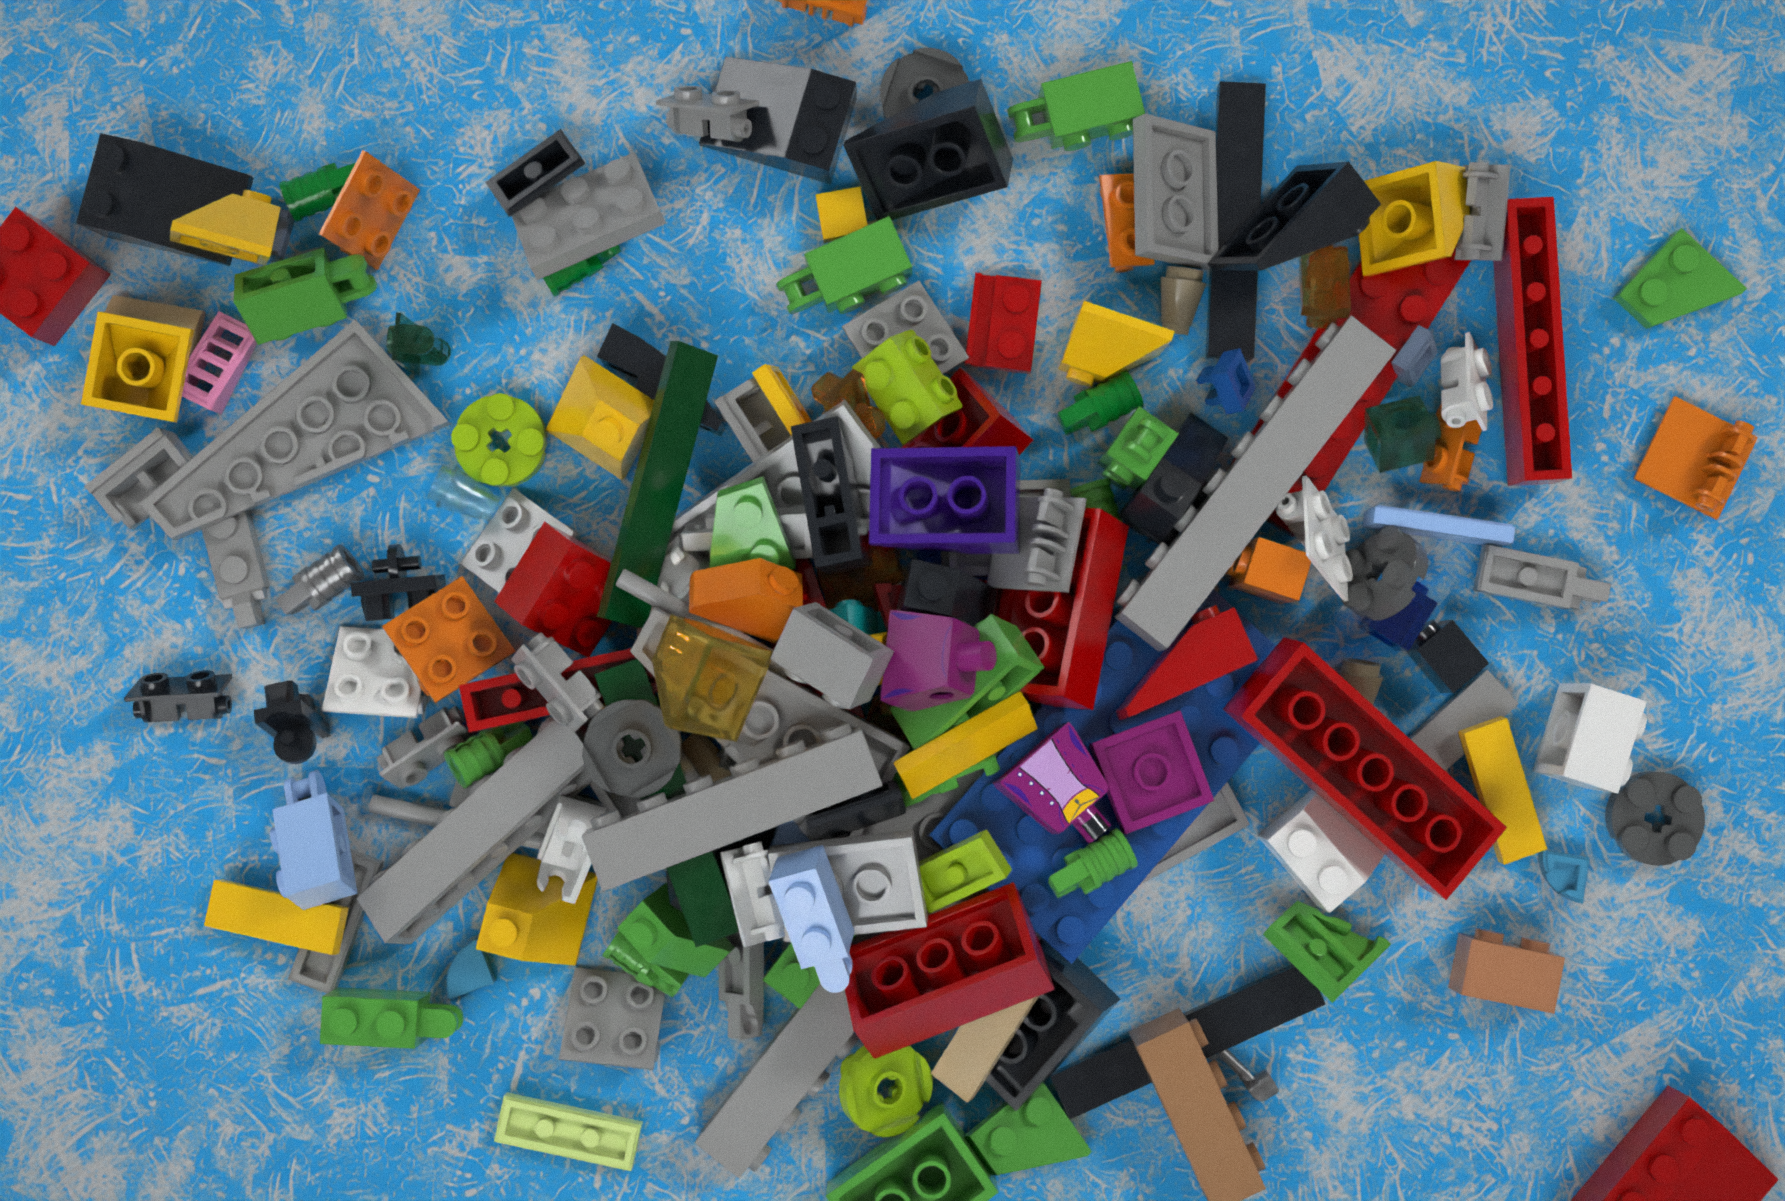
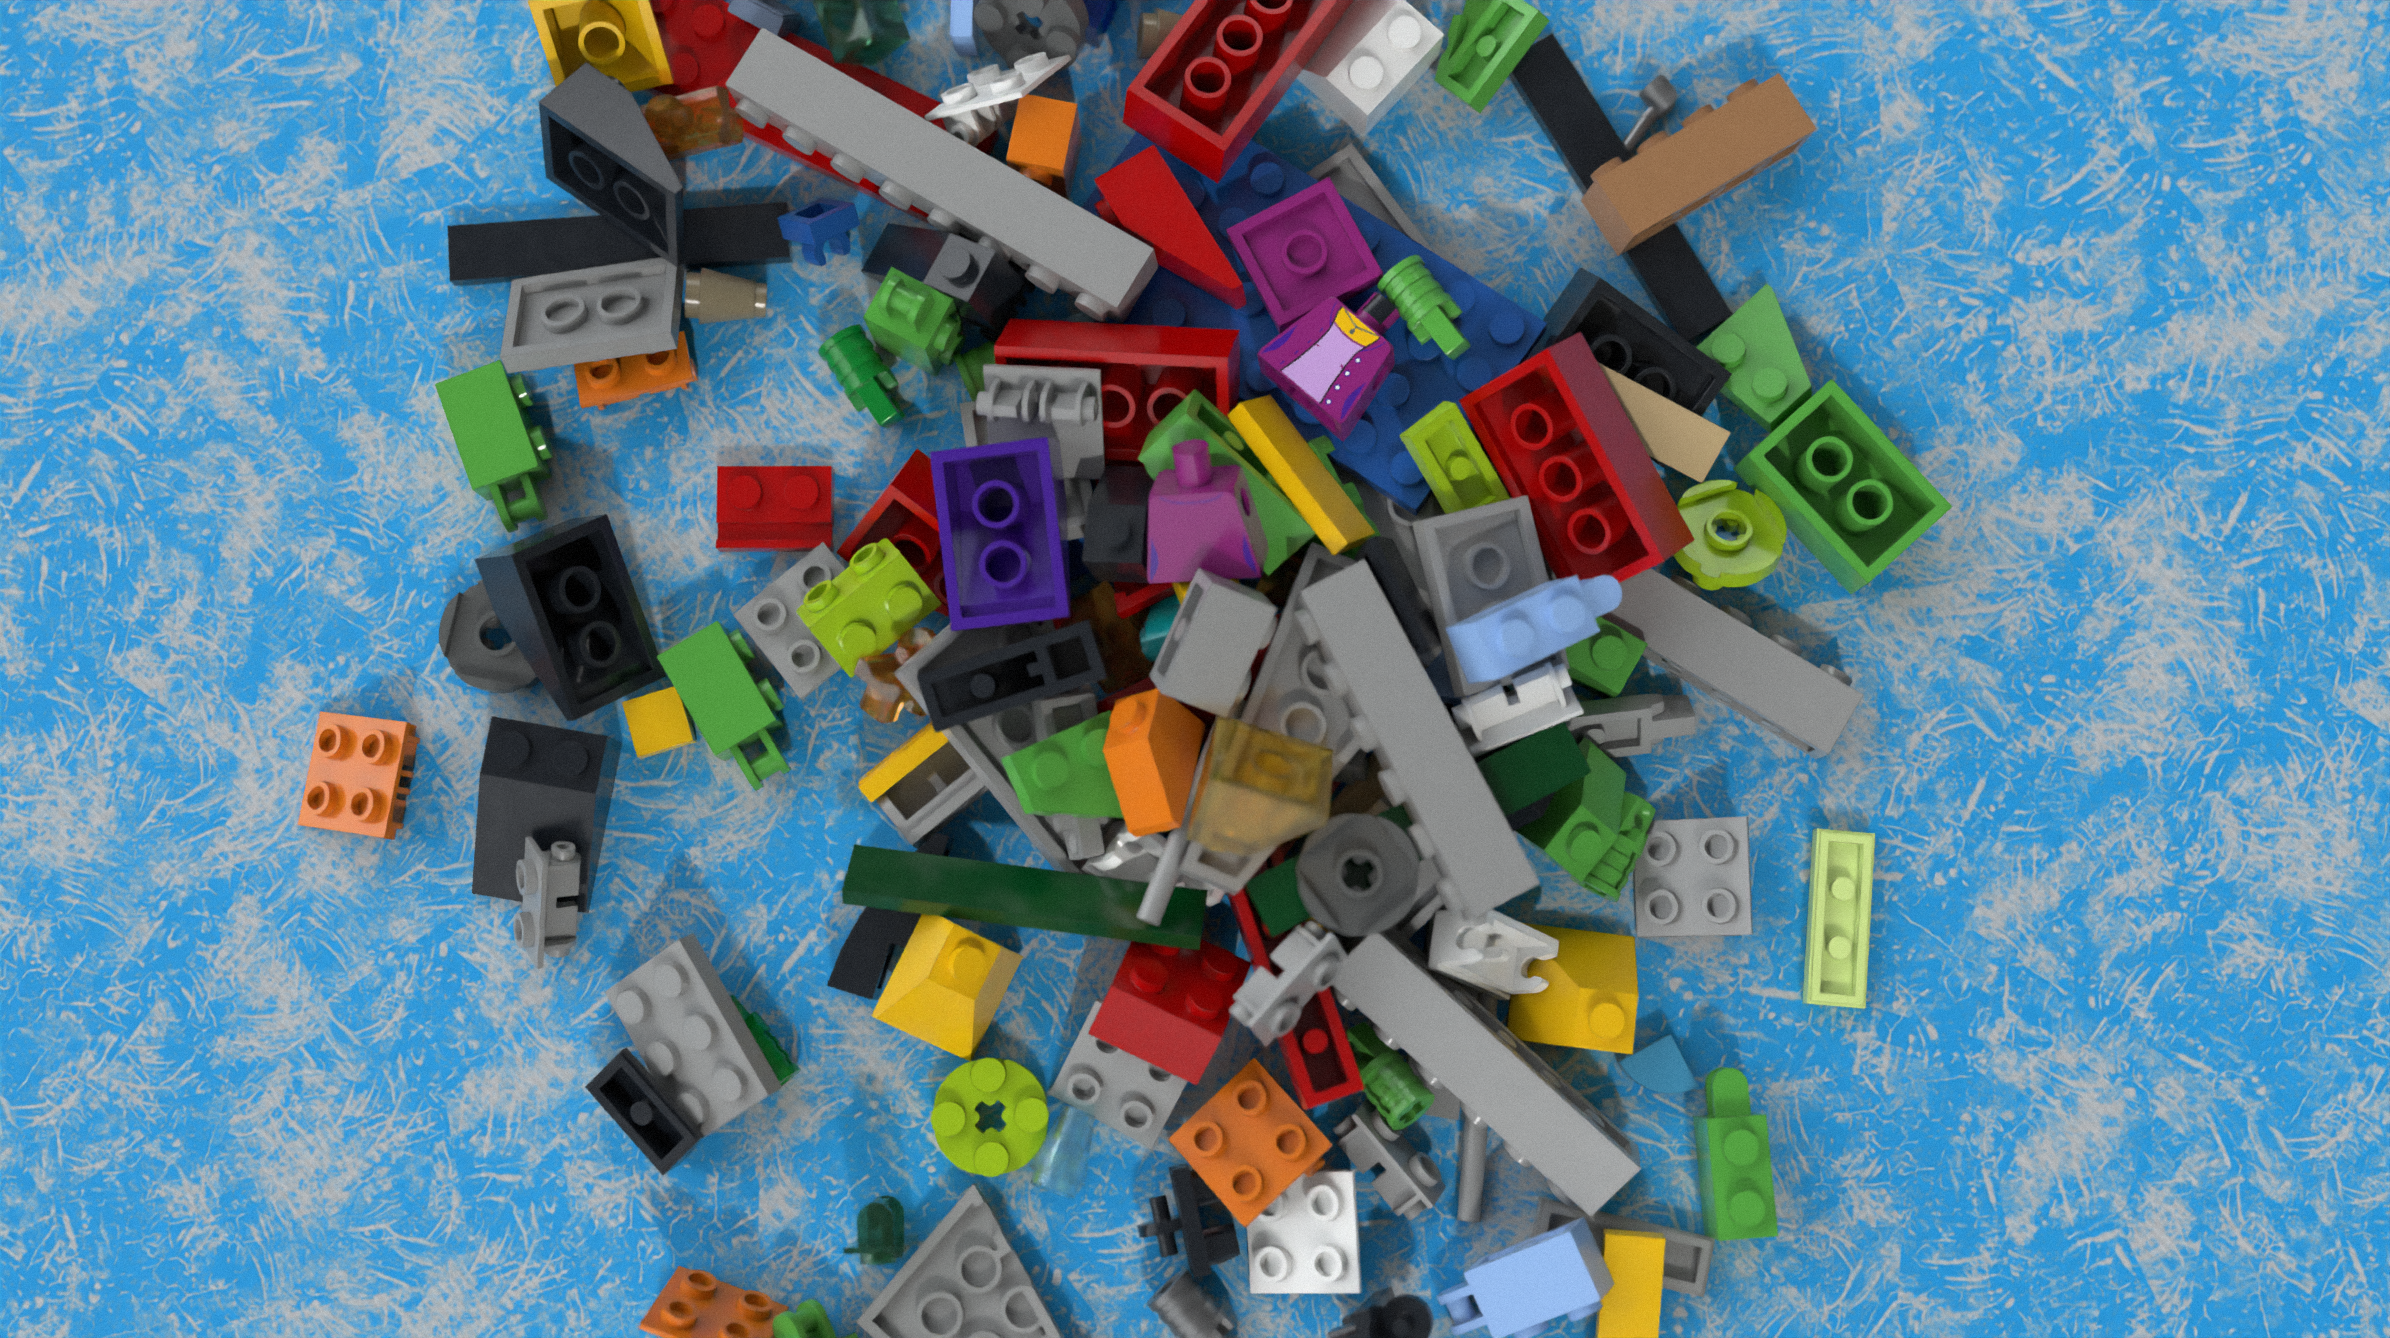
camera: 100 degrees left, 5 degrees down
(1109, 343) = (786, 375): yellow slope -> none

